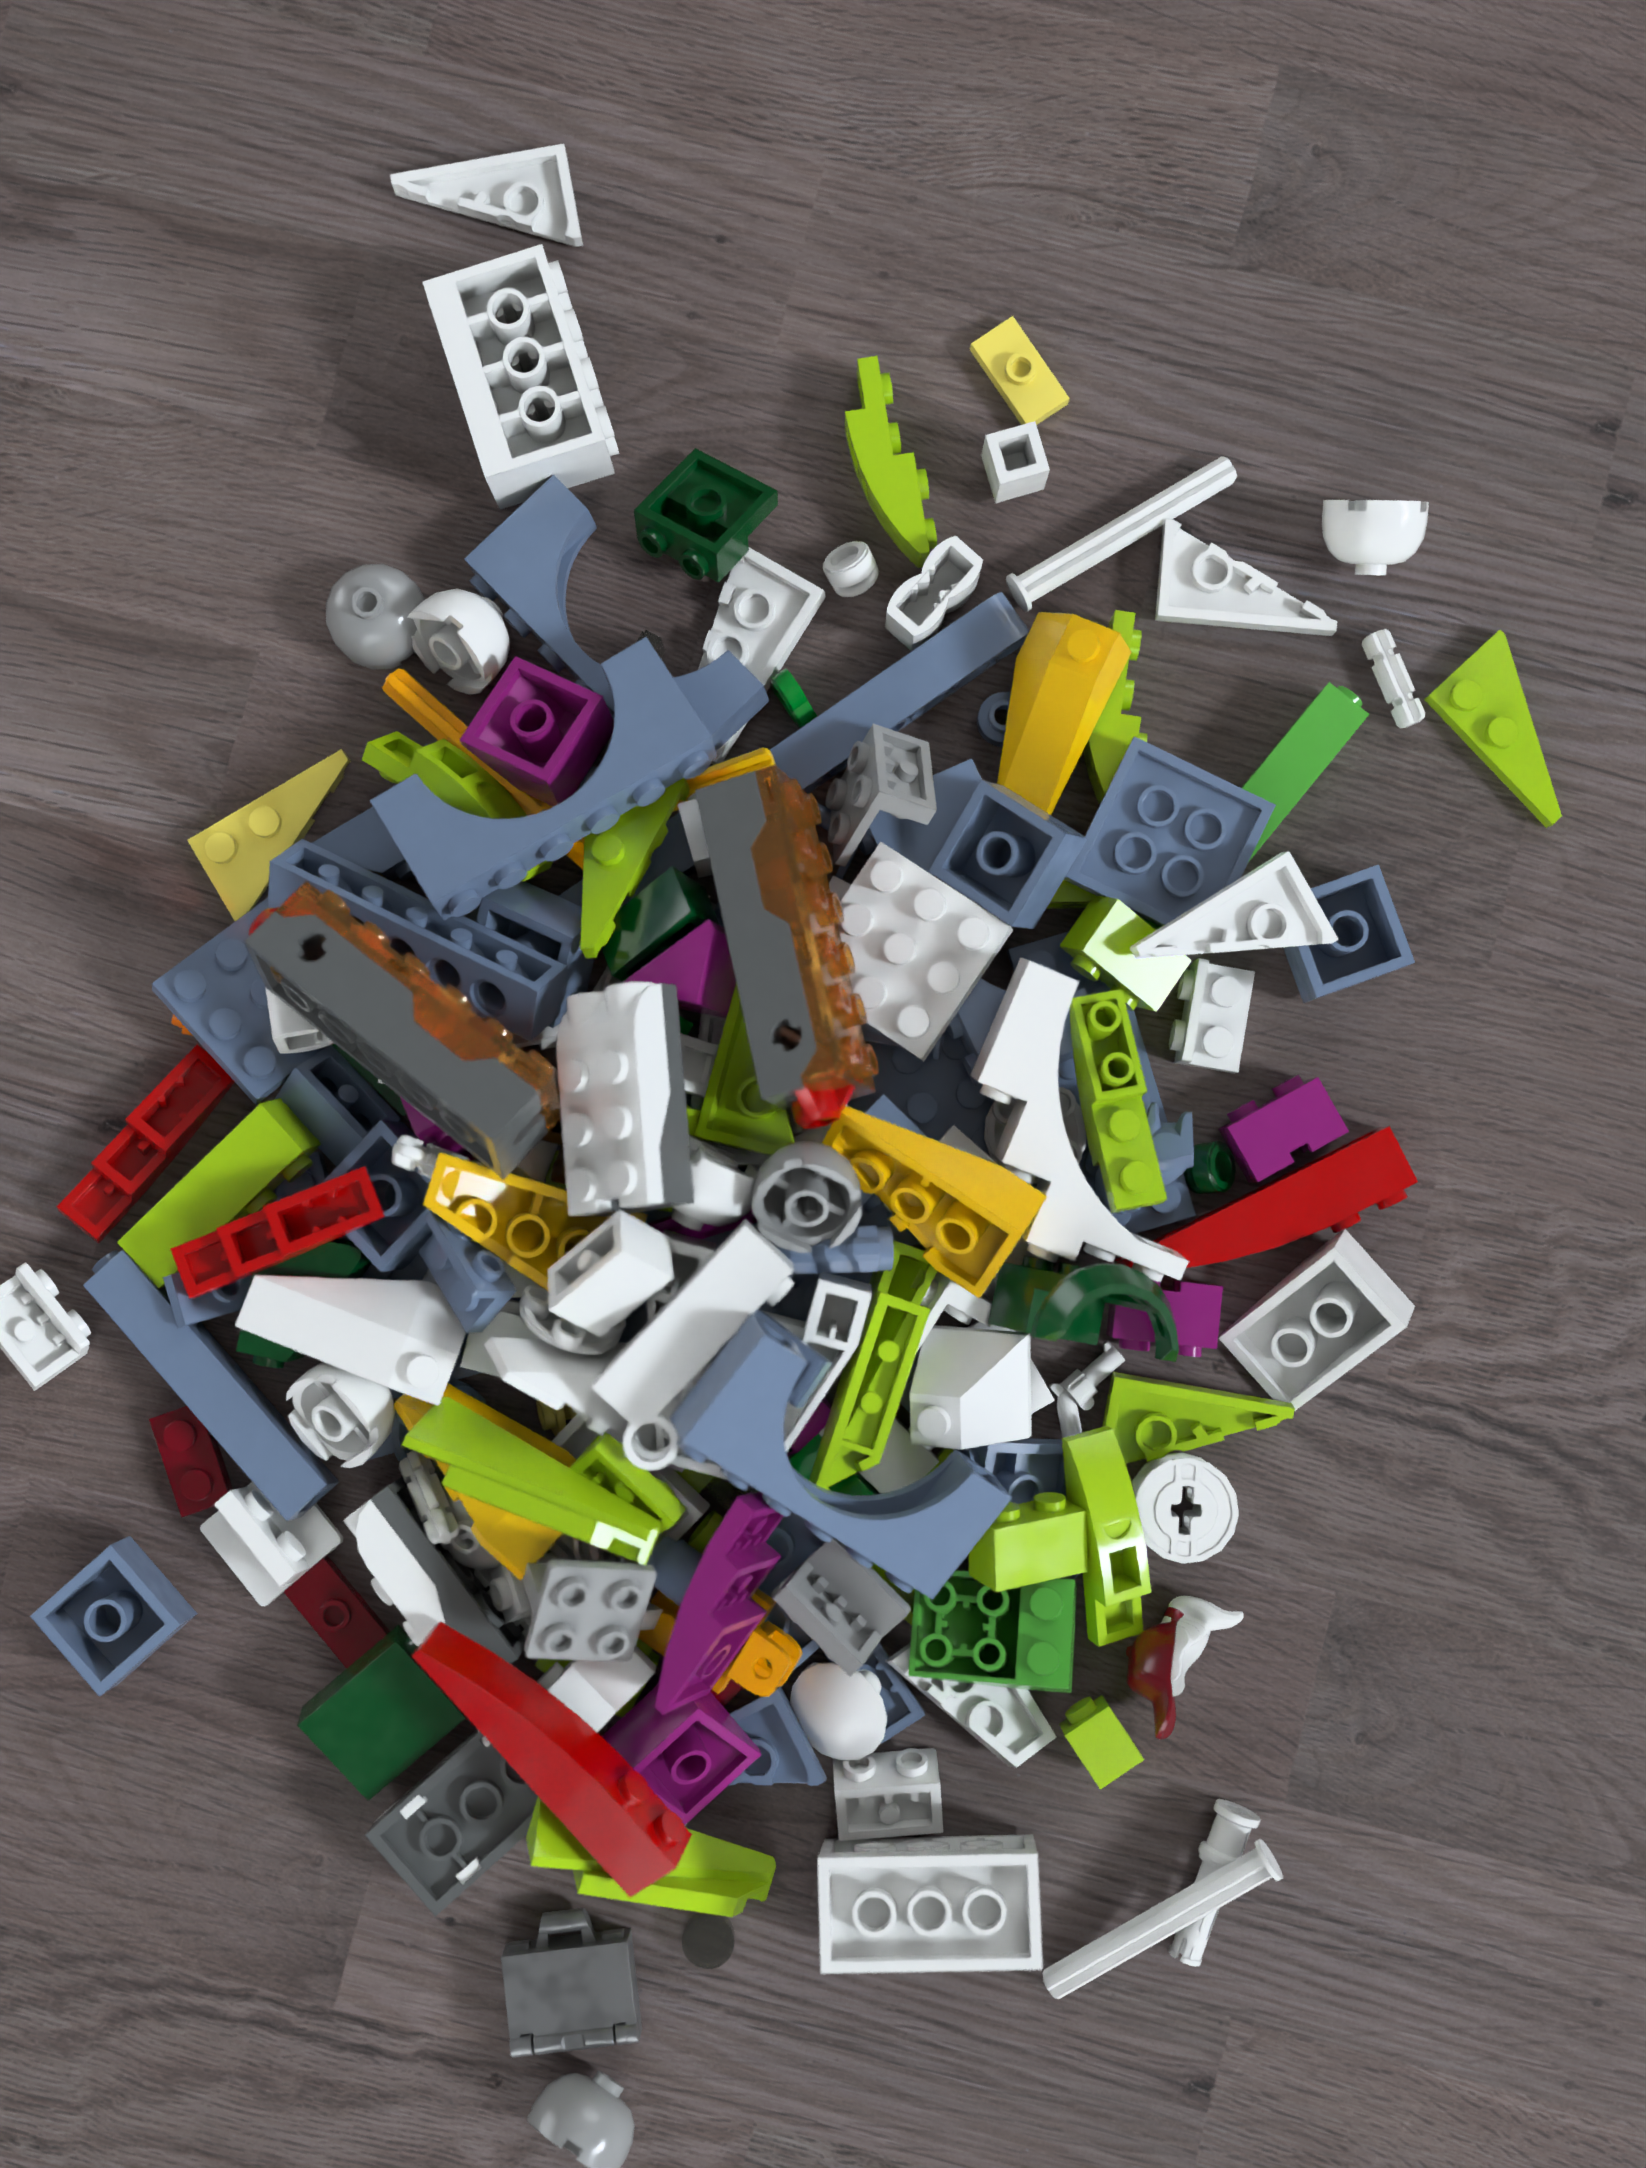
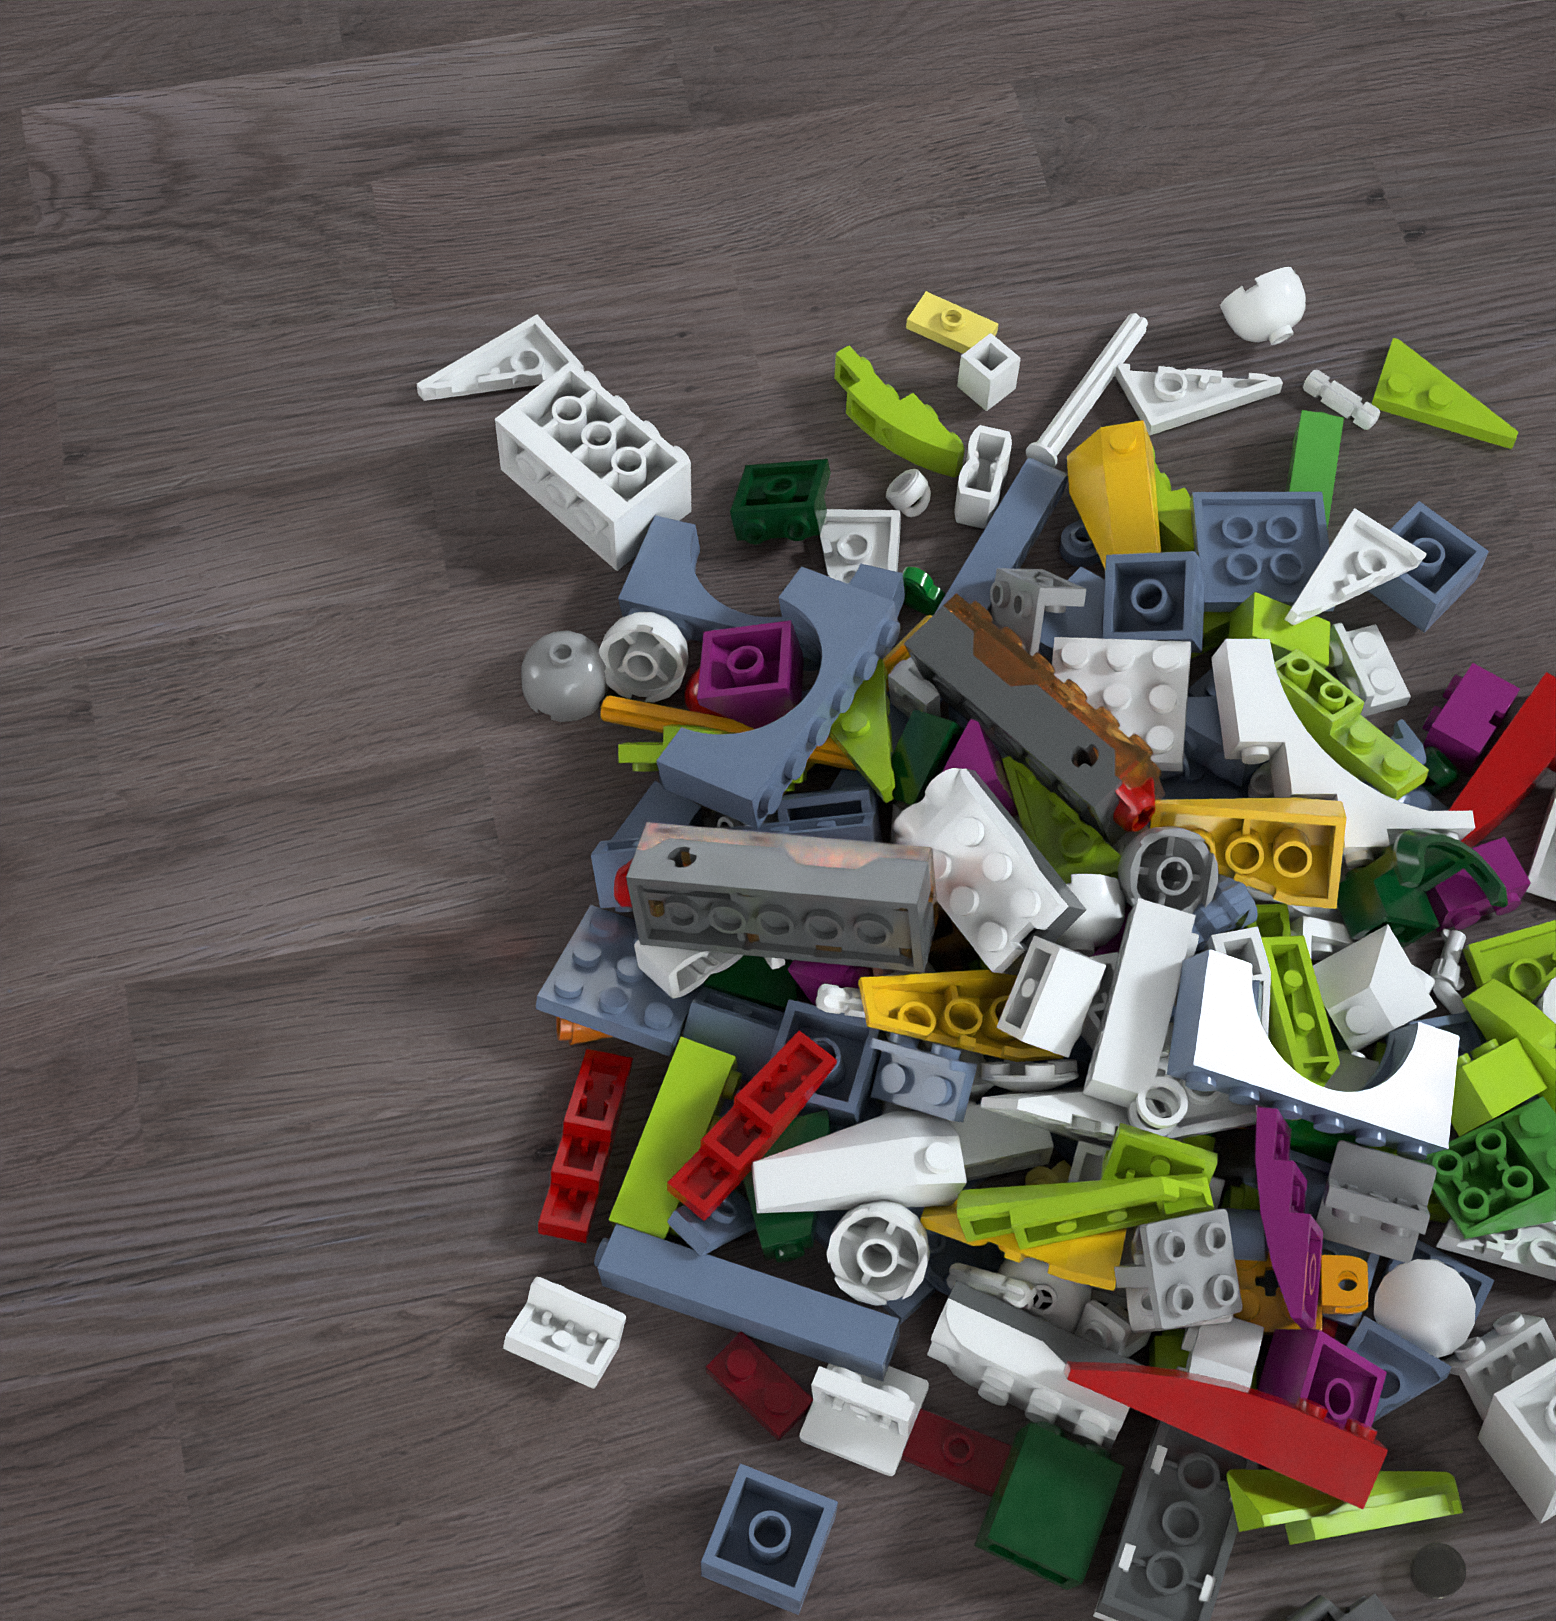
camera: 30 degrees left, 25 degrees down
(242, 845) = (551, 881): light yellow wing -> none

